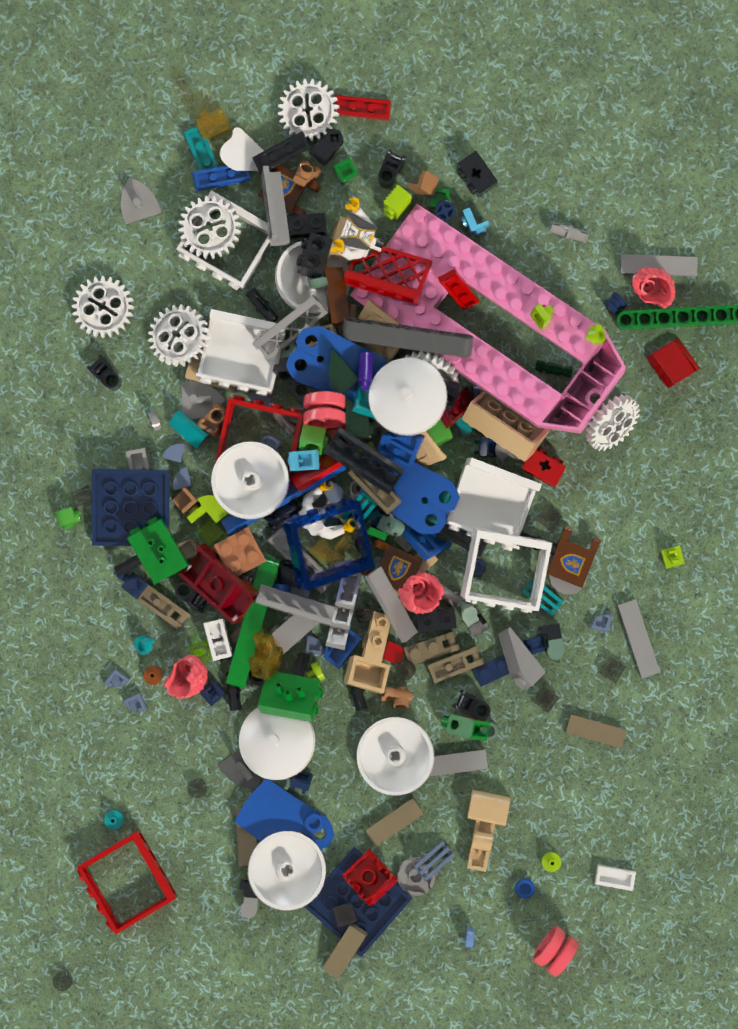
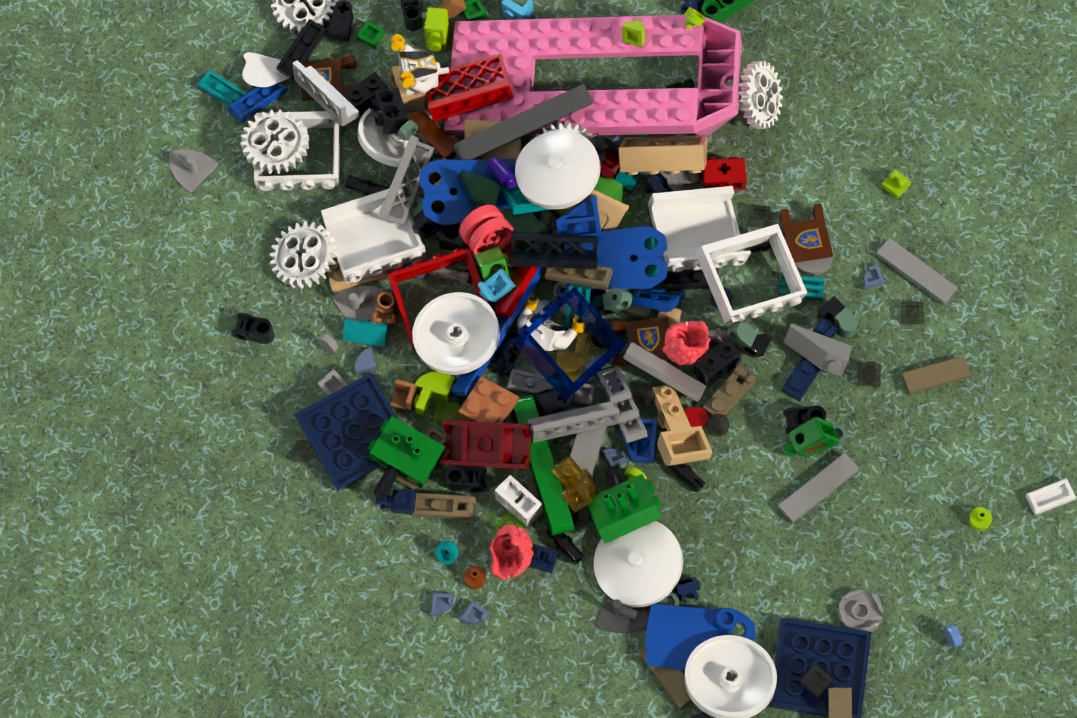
camera: 30 degrees left, 20 degrees down
(67, 517) = (297, 478): bright green plate -> none
(94, 321) = (213, 289): white gear -> none
(182, 480) = (387, 381): sand blue tile -> none
(197, 788) = (588, 658): clear smoke tile -> none
(212, 123) = (221, 59): clear yellow brick -> none
(306, 173) = (335, 53): medium nougat plate -> none
(369, 878) = (817, 634): red slope -> none
(374, 531) = (610, 316): green tile -> none
(394, 821) = (804, 573): dark tan tile -> none
(395, 756) = (763, 506): white dish -> none
(400, 697) = (727, 452): medium nougat plate -> none
(445, 213) = (482, 9): dark blue wheel -> none
(445, 851) = (871, 570): sand blue tile -> none
(455, 664) = (761, 393): dark tan plate -> none
(458, 289) = (542, 64): red tile -> none
(487, 811) = (887, 508): tan plate -> none
(525, 888) = (973, 559): blue tile -> none
(555, 951) = (1044, 592): coral wheel -> none
(673, 363) = (779, 25): red slope -> none

